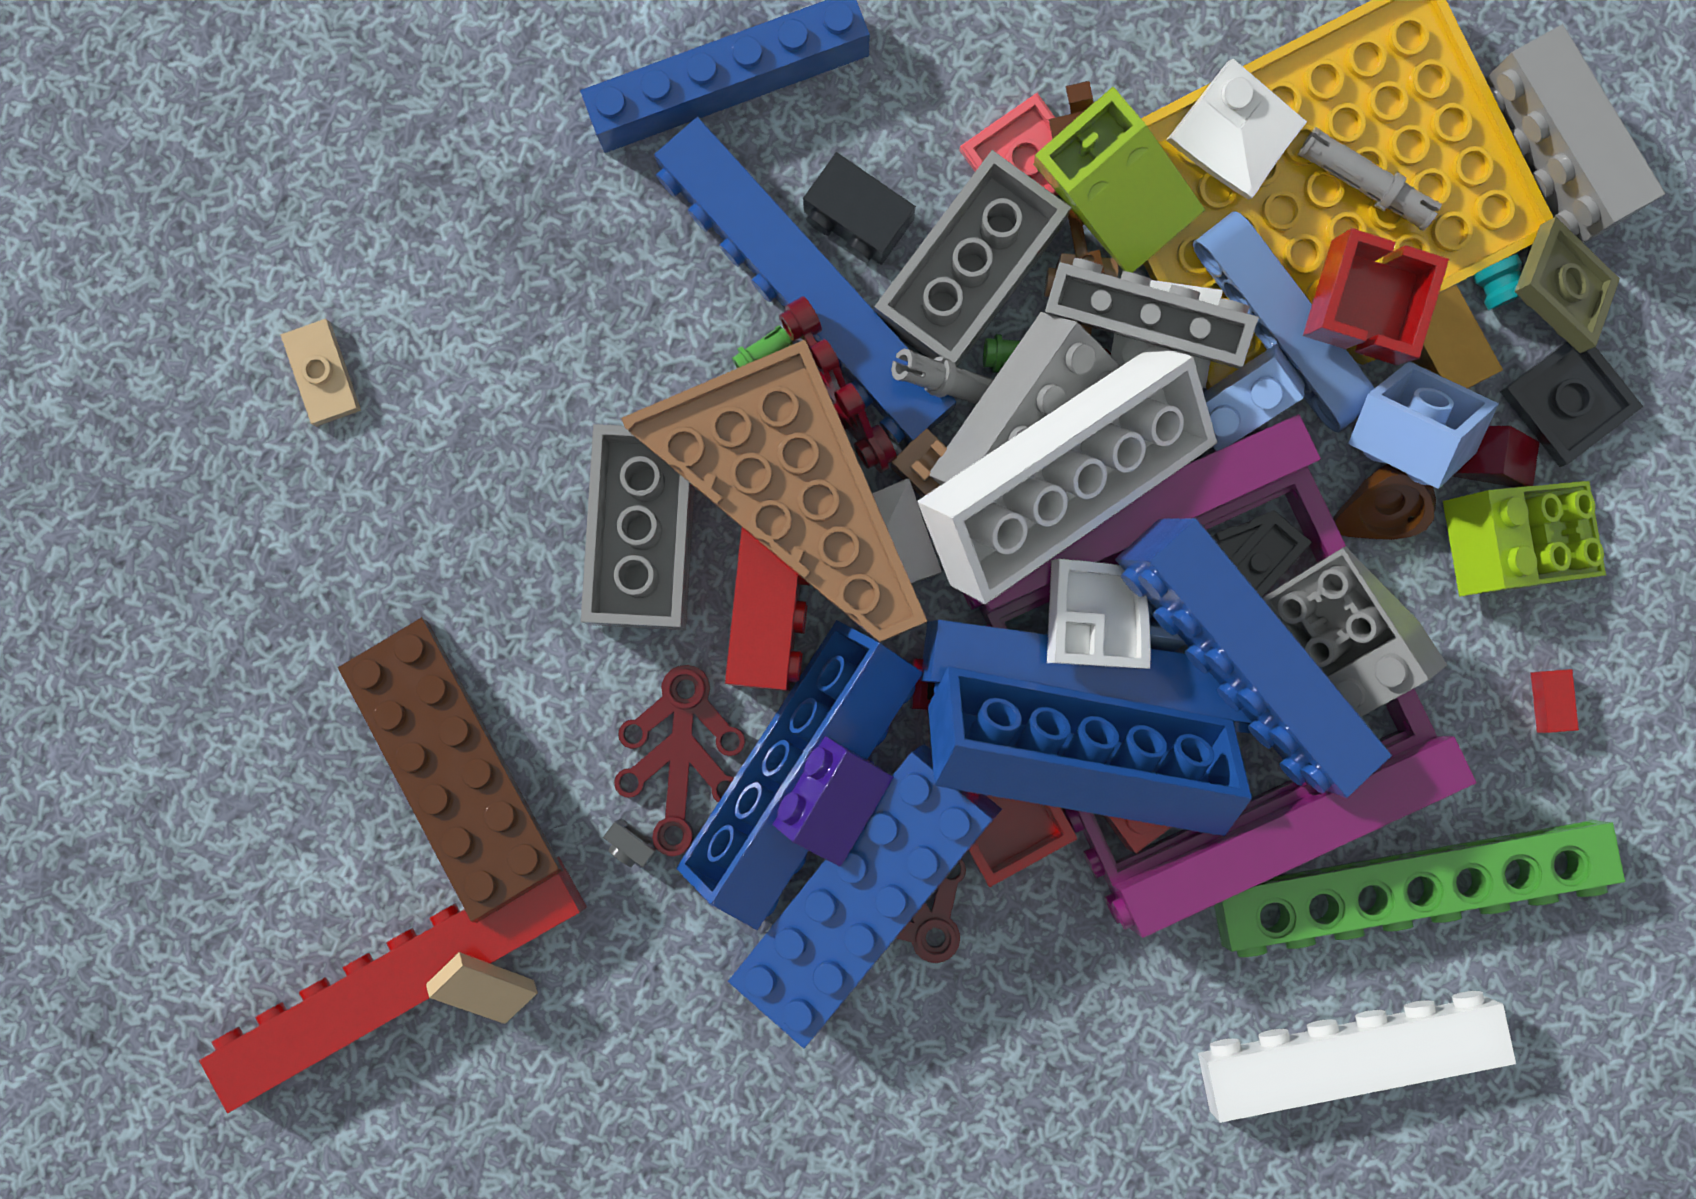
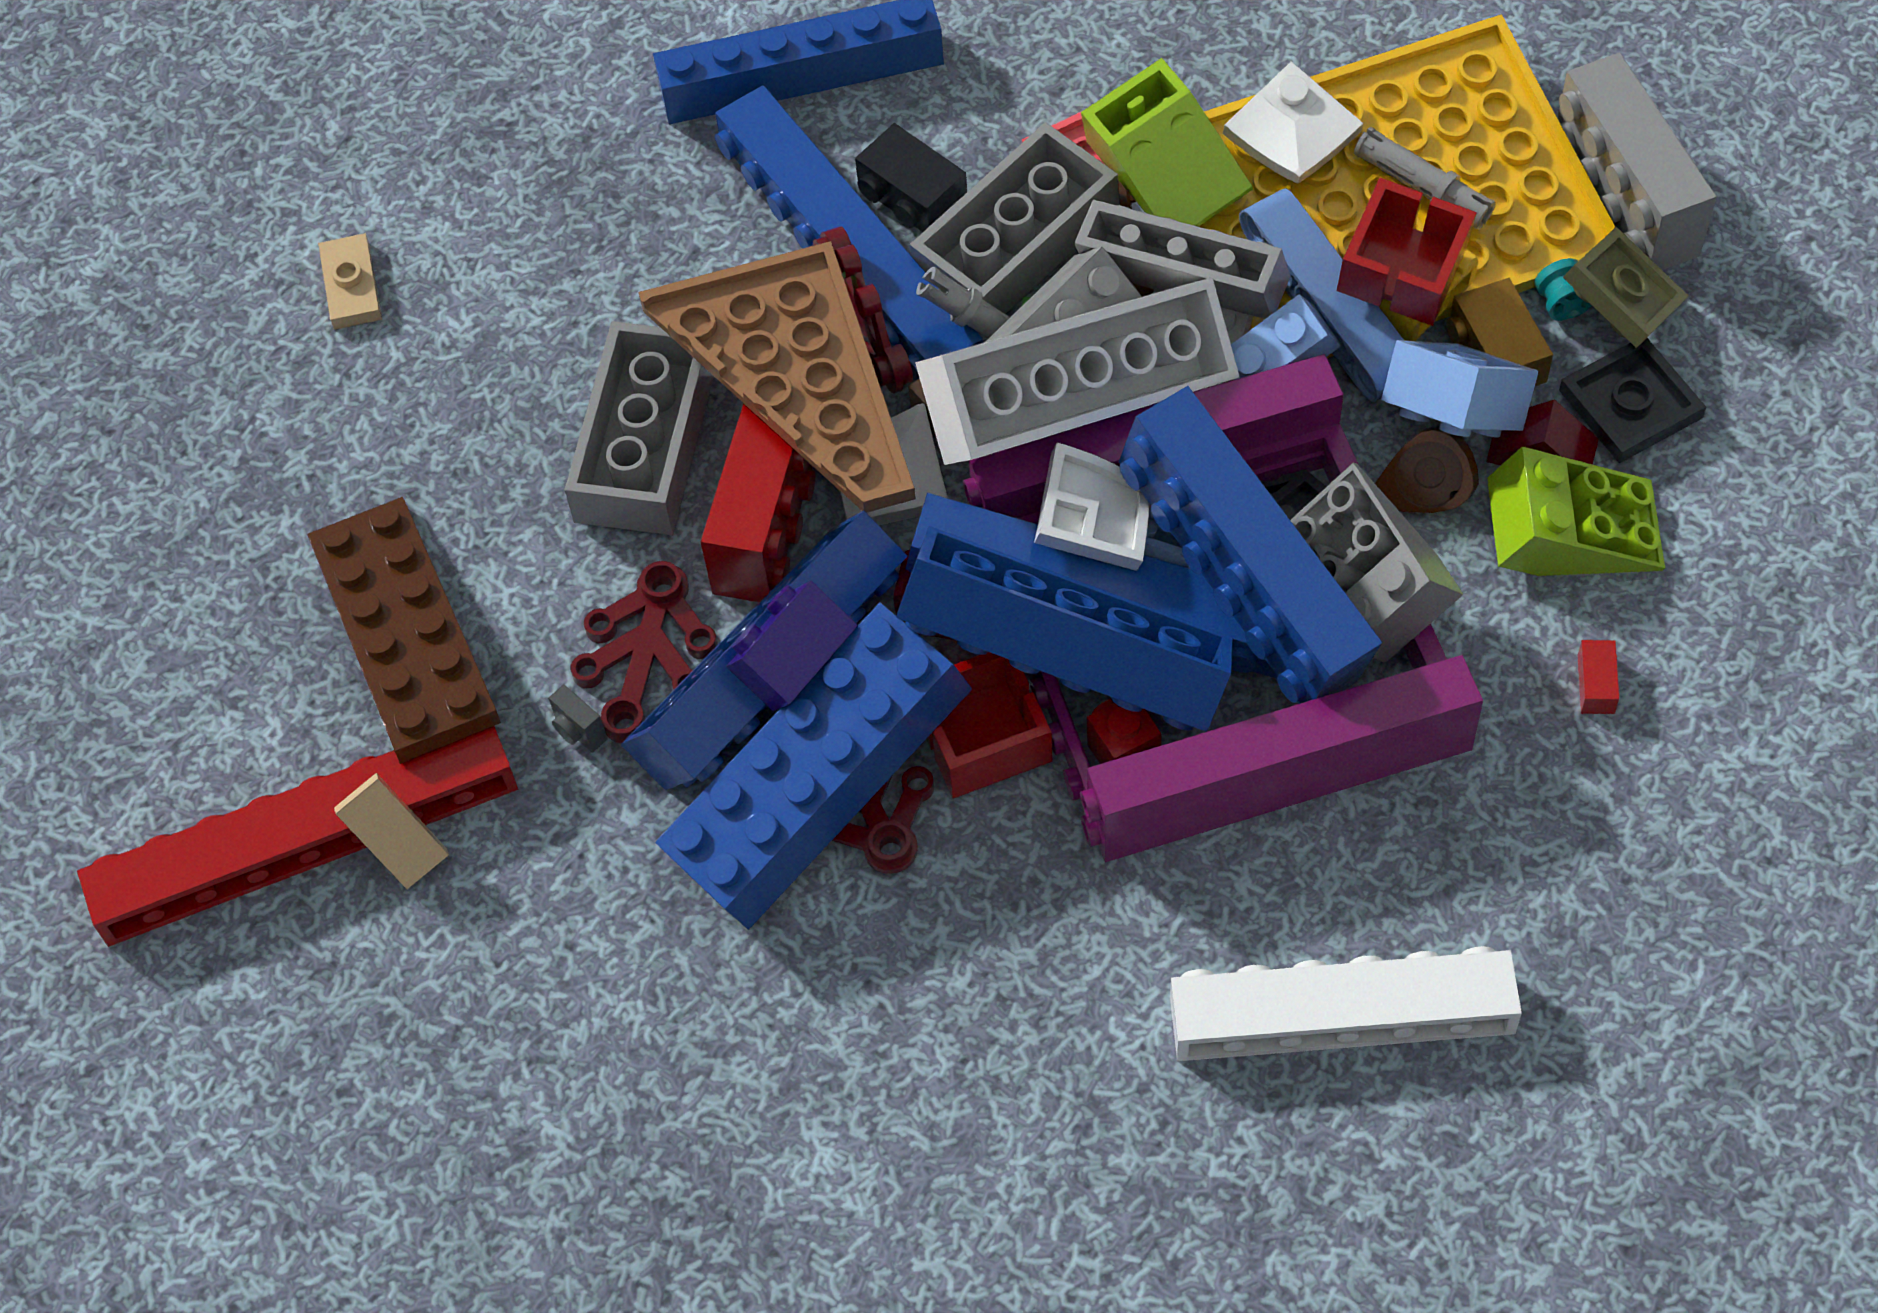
camera: 10 degrees right, 25 degrees down
(1591, 866) = (1505, 815): bright green brick -> none

